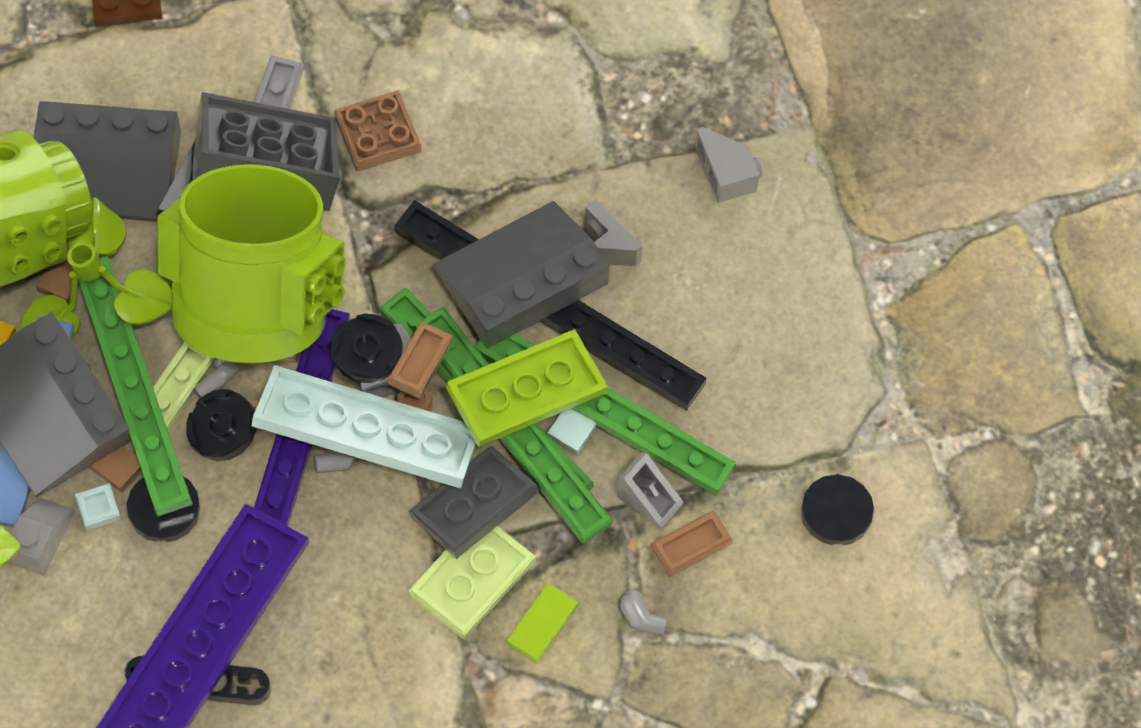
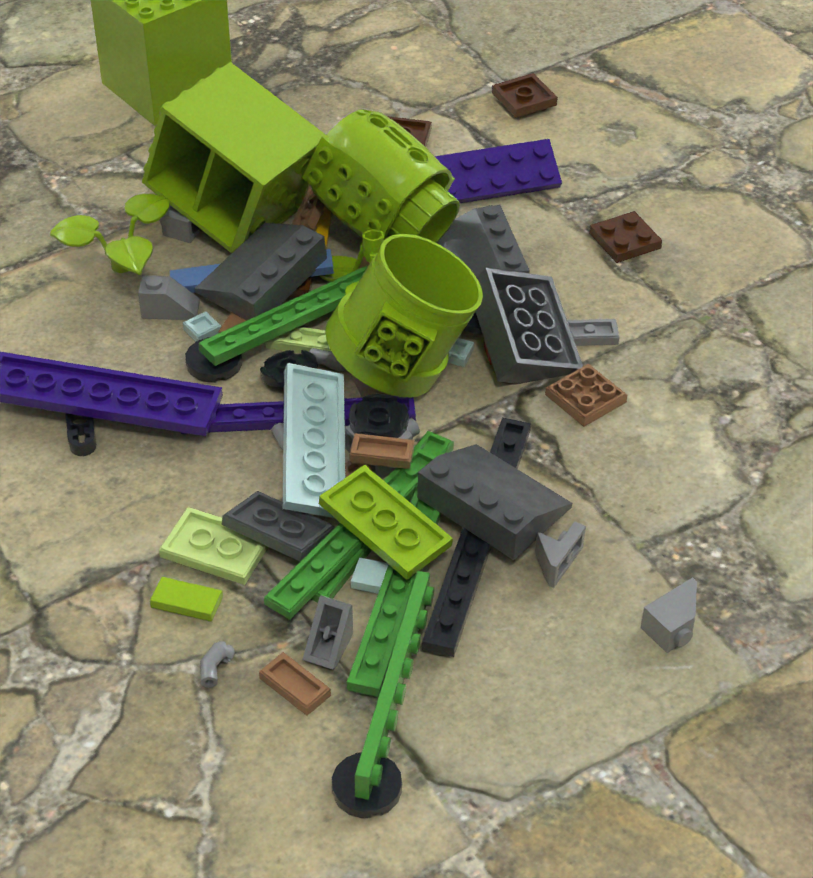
camera: 75 degrees right, 20 degrees down
(743, 449) = (393, 690): none -> bright green plate

